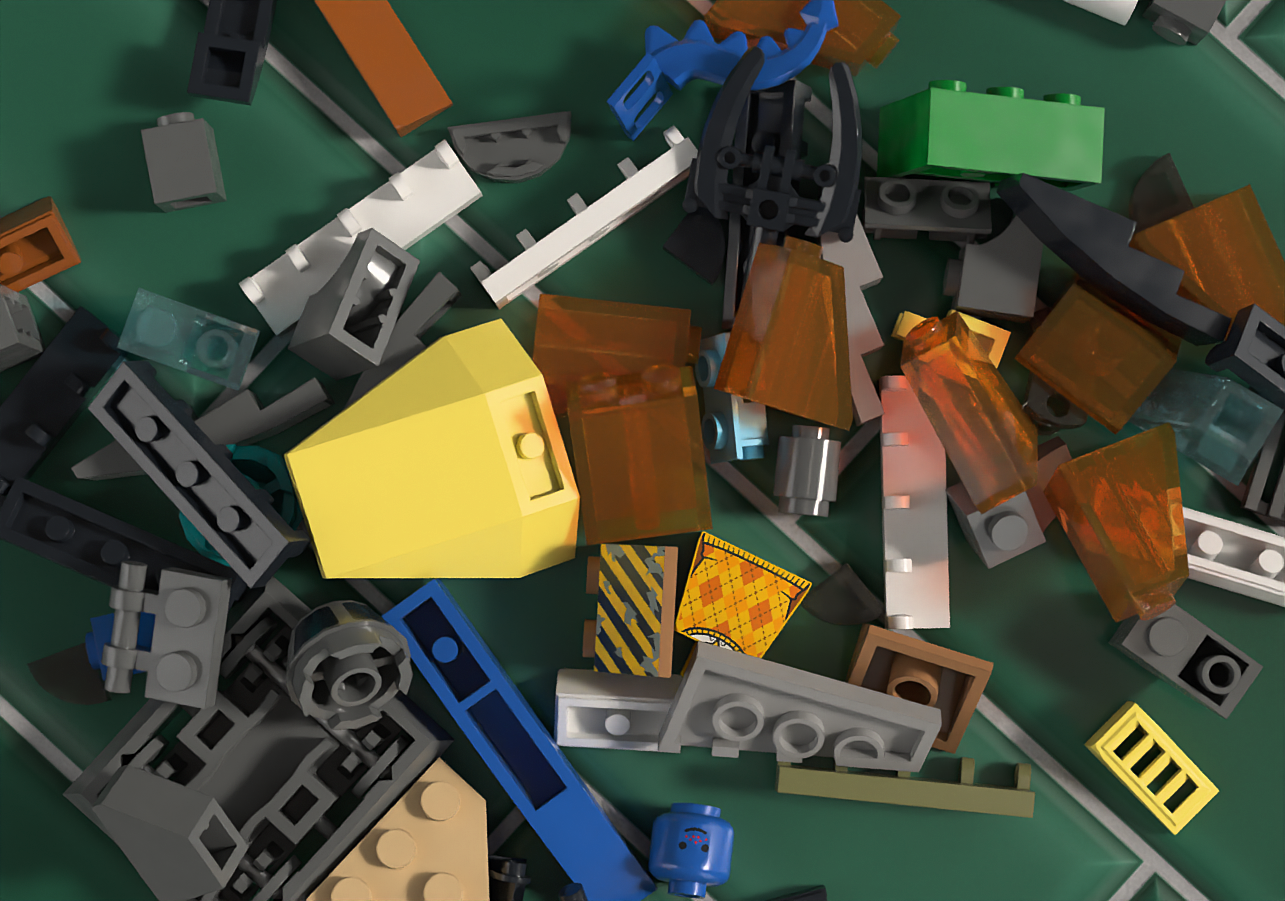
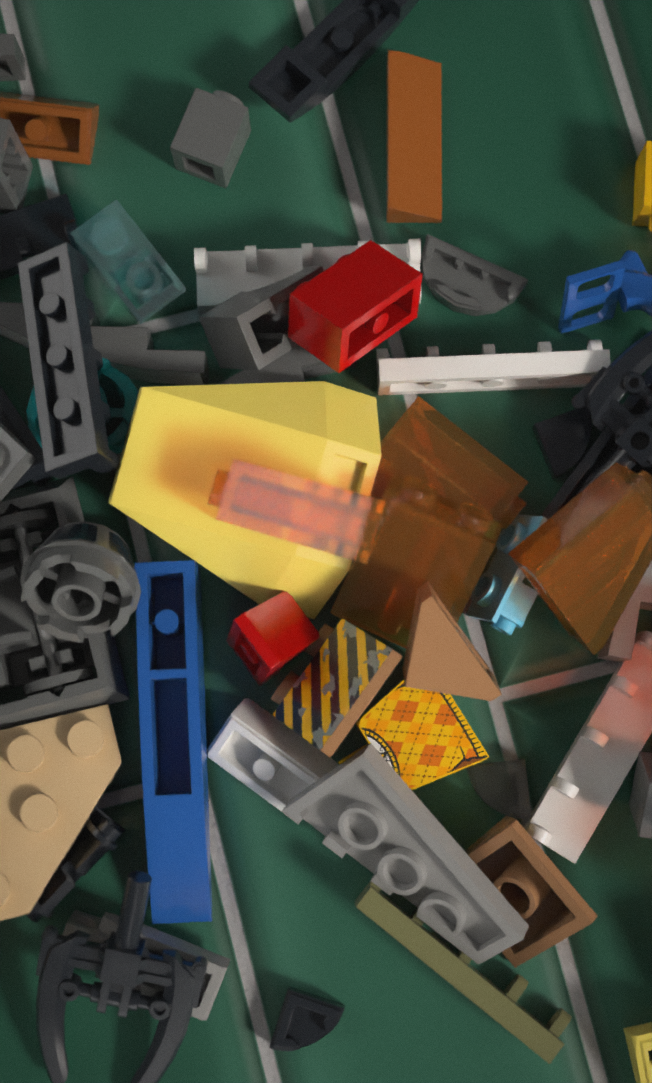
camera: 30 degrees right, 5 degrees down
(427, 249) = (354, 305): none -> red brick
(501, 480) = (297, 510): none -> clear orange slope
(548, 600) = (271, 636): none -> red slope
(691, 849) = (258, 907): blue head -> none
(713, 520) = (441, 654): none -> medium nougat slope
(806, 471) = (538, 667): dark grey brick -> none

